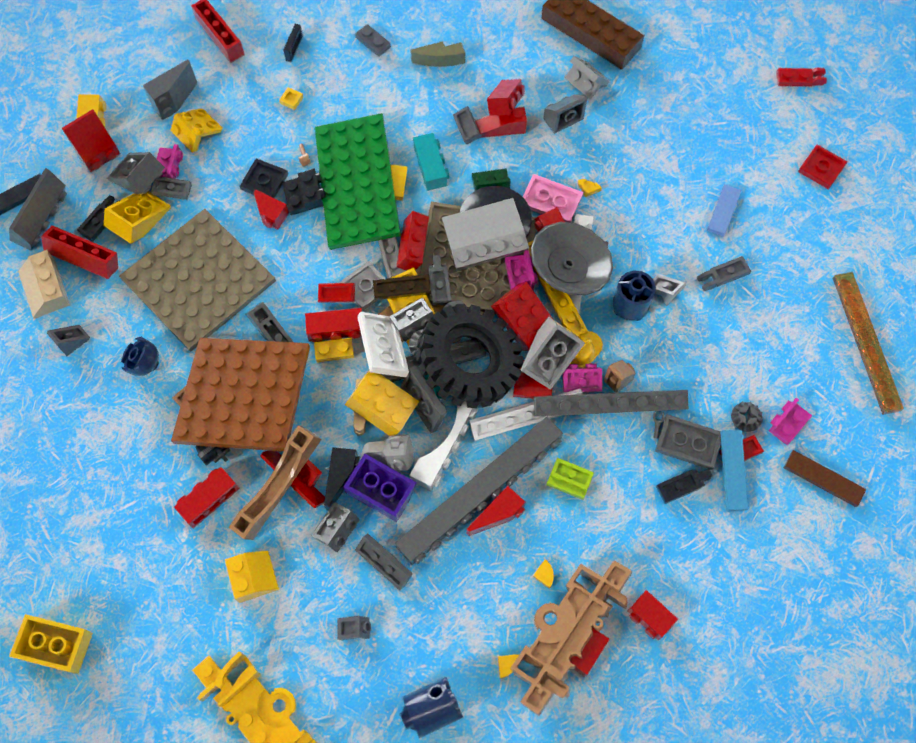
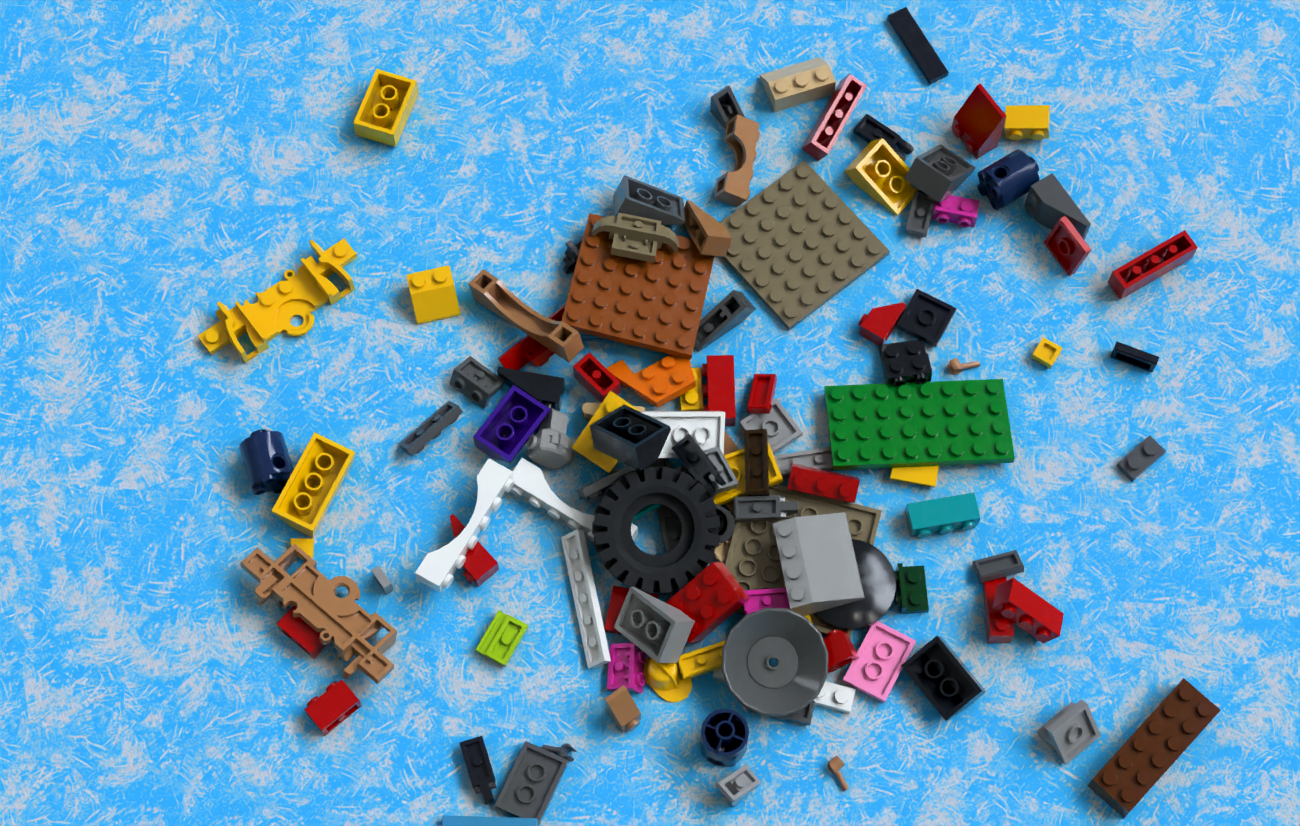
camera: 95 degrees right, 0 degrees up
(37, 210) = (890, 70): dark grey slope -> none
(97, 323) = (741, 137): none -> medium nougat arch
(140, 357) = (693, 182): dark blue cylinder -> none
(143, 123) = (1008, 179): none -> dark blue cylinder
(162, 395) = (648, 201): none -> dark grey slope
(188, 343) = (705, 231): none -> medium nougat slope
(193, 125) = (1007, 240): yellow bracket -> none
(196, 396) = (636, 236): none -> dark tan plate
(202, 82) = (1067, 245): none -> red tile
(206, 497) = (525, 251): red brick -> none
(330, 371) = (659, 381): none -> orange wing
(331, 421) = (596, 377): none -> red brick
(353, 627) = (363, 395): dark grey bracket -> none
(397, 370) = (630, 437): none -> black slope
(409, 325) = (697, 462): none -> black hinge
(438, 55) = (1111, 540): olive slope -> none
(442, 495) = (441, 564): none -> white arch
(450, 657) = (313, 484): none -> yellow slope
(479, 491) = (502, 540): dark grey brick -> none
(531, 586) = (382, 580): none -> light grey tile
(545, 574) = (396, 598): yellow tile -> none
(561, 153) = (943, 678): none -> black slope
(565, 112) = (1010, 691): dark grey slope -> none
(588, 187) = (897, 713): yellow tile -> none
(610, 402) = (588, 696): dark grey plate -> none
(636, 225) = (834, 766): none -> medium nougat hand

